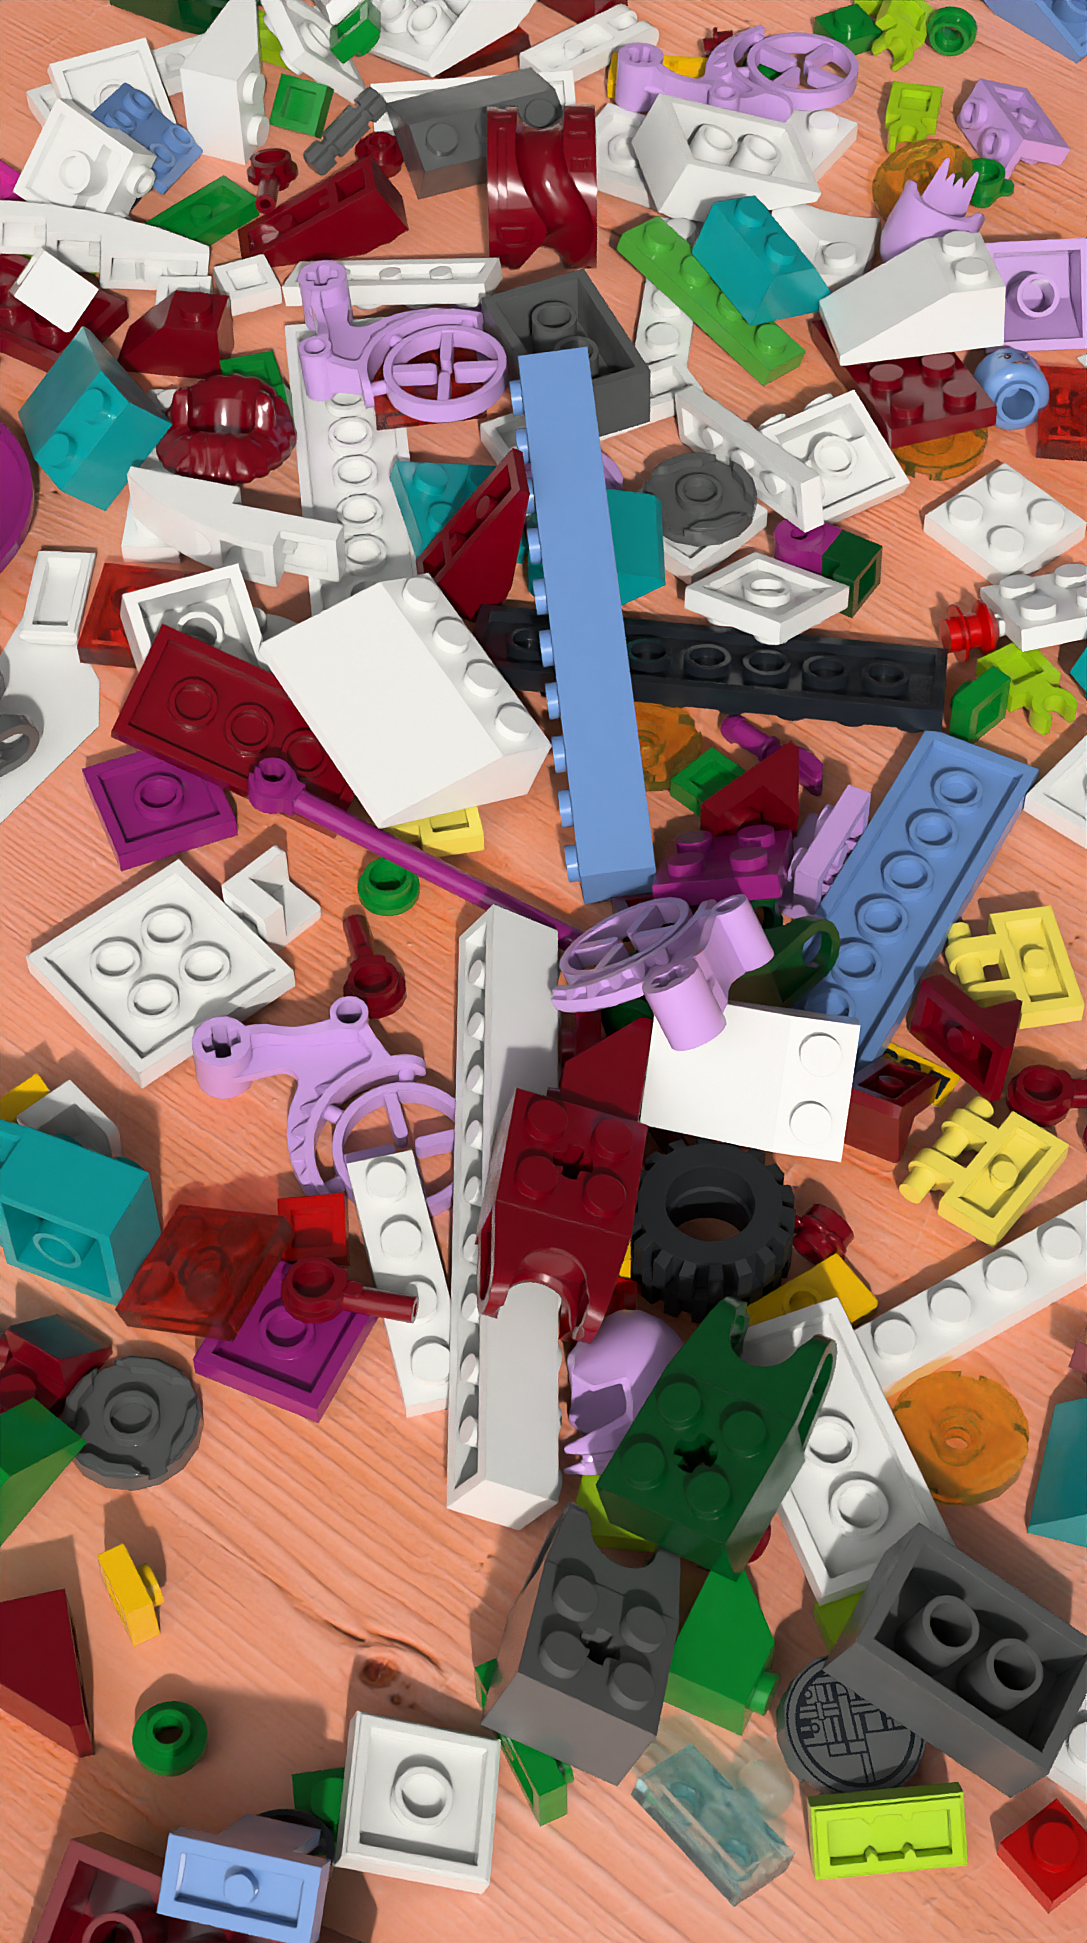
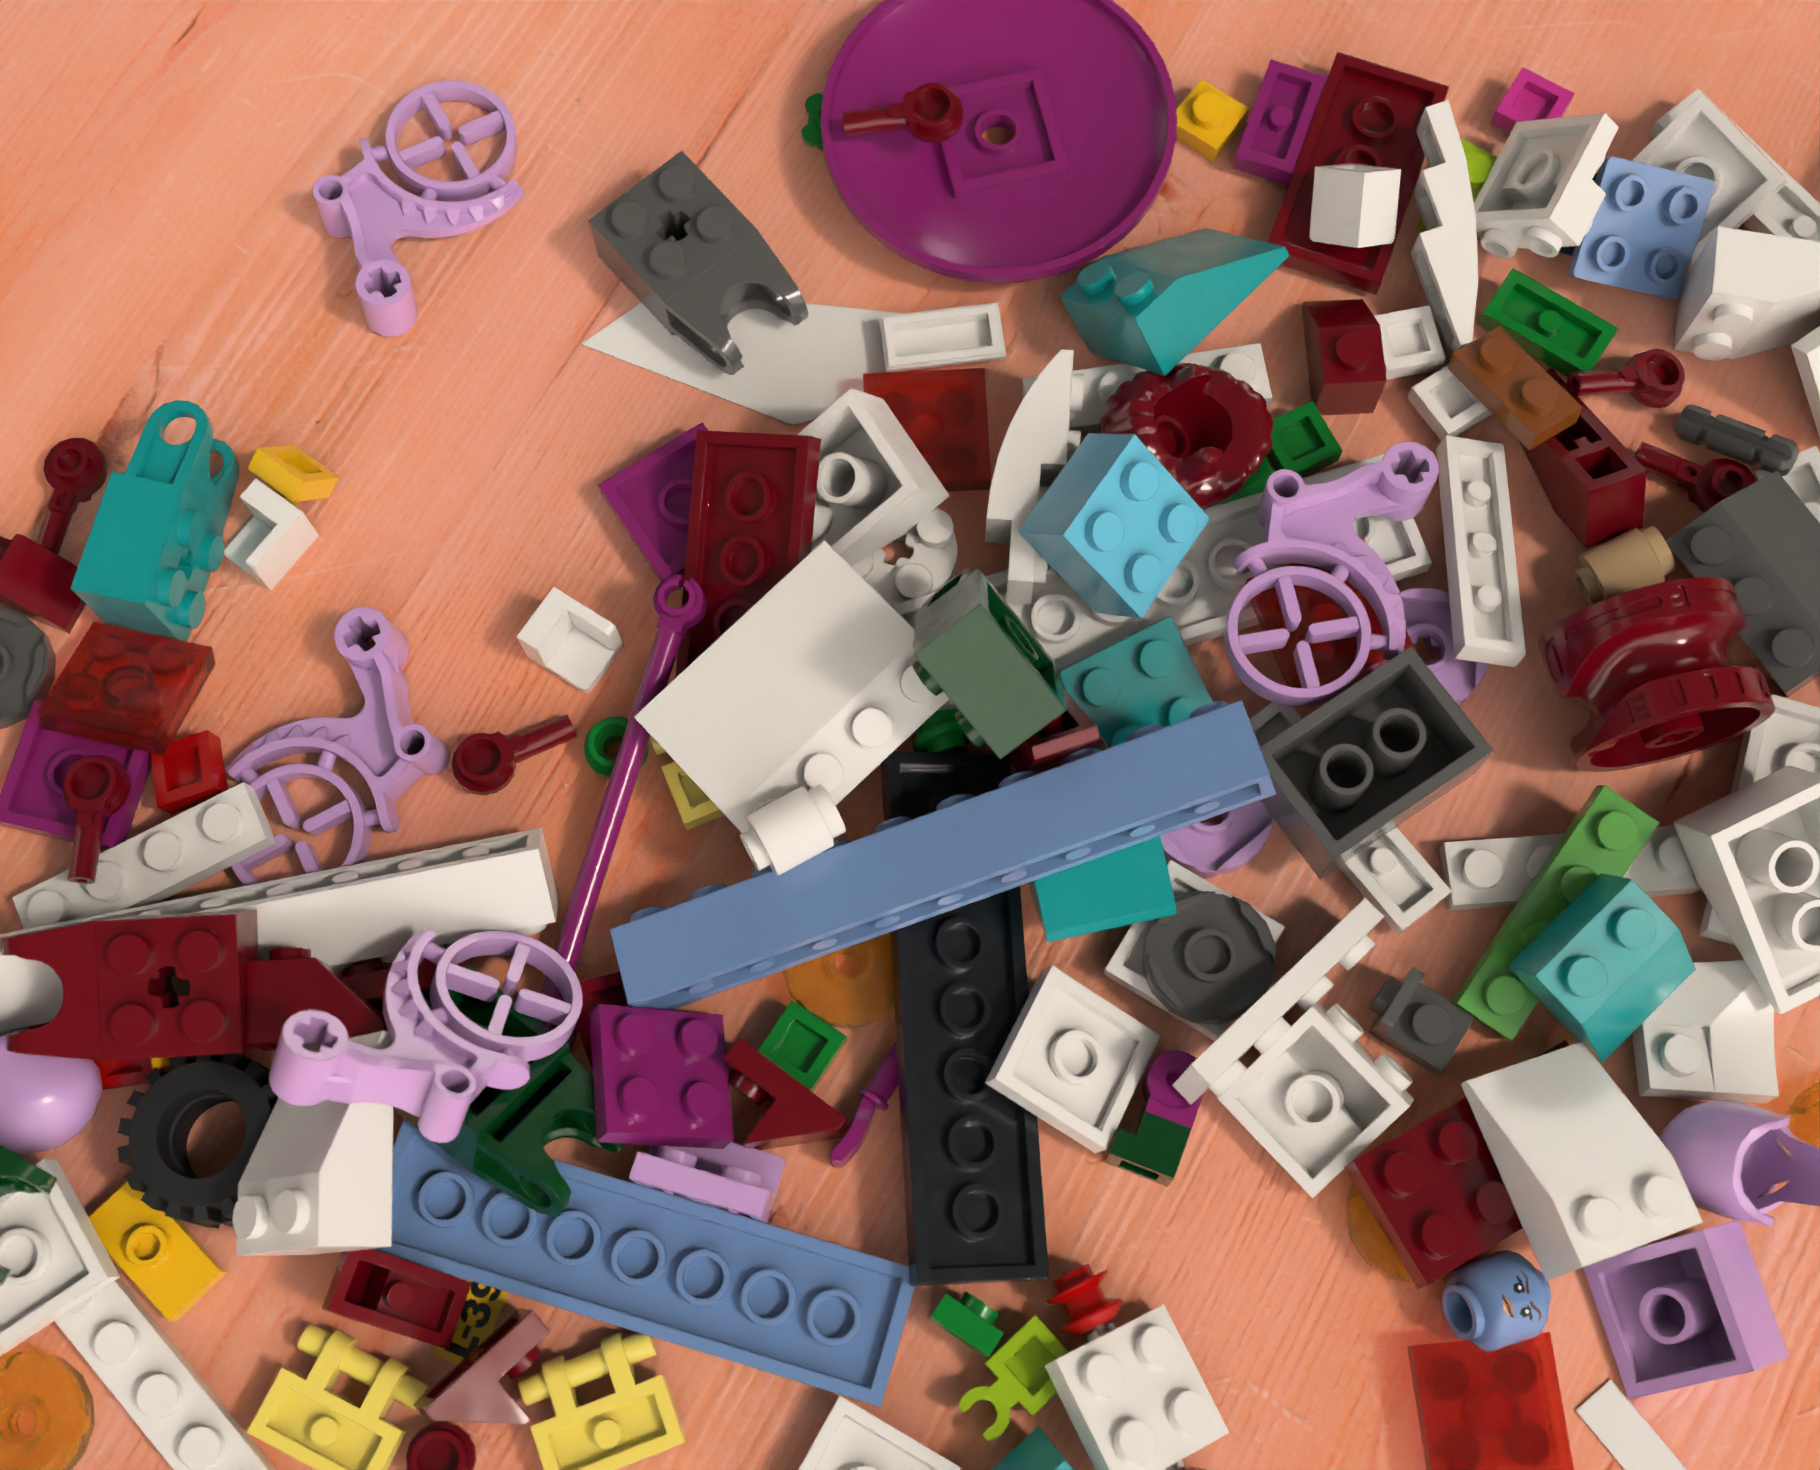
camera: 80 degrees right, 20 degrees up
(158, 969) = (472, 560): white plate -> none
(259, 231) = (1515, 388): none -> dark orange plate
(301, 106) = (1768, 383): green plate -> none
(310, 460) = (1114, 524): none -> medium azure brick
(421, 517) = (986, 663): none -> dark green brick
(433, 211) = (1624, 564): none -> tan brick
(534, 694) = (792, 829): none -> white brick
(775, 395) = (1418, 1021): none -> dark grey bracket
(821, 1234) = (233, 1267): dark red plate -> none
(1004, 526) = (1281, 1323): white plate -> none

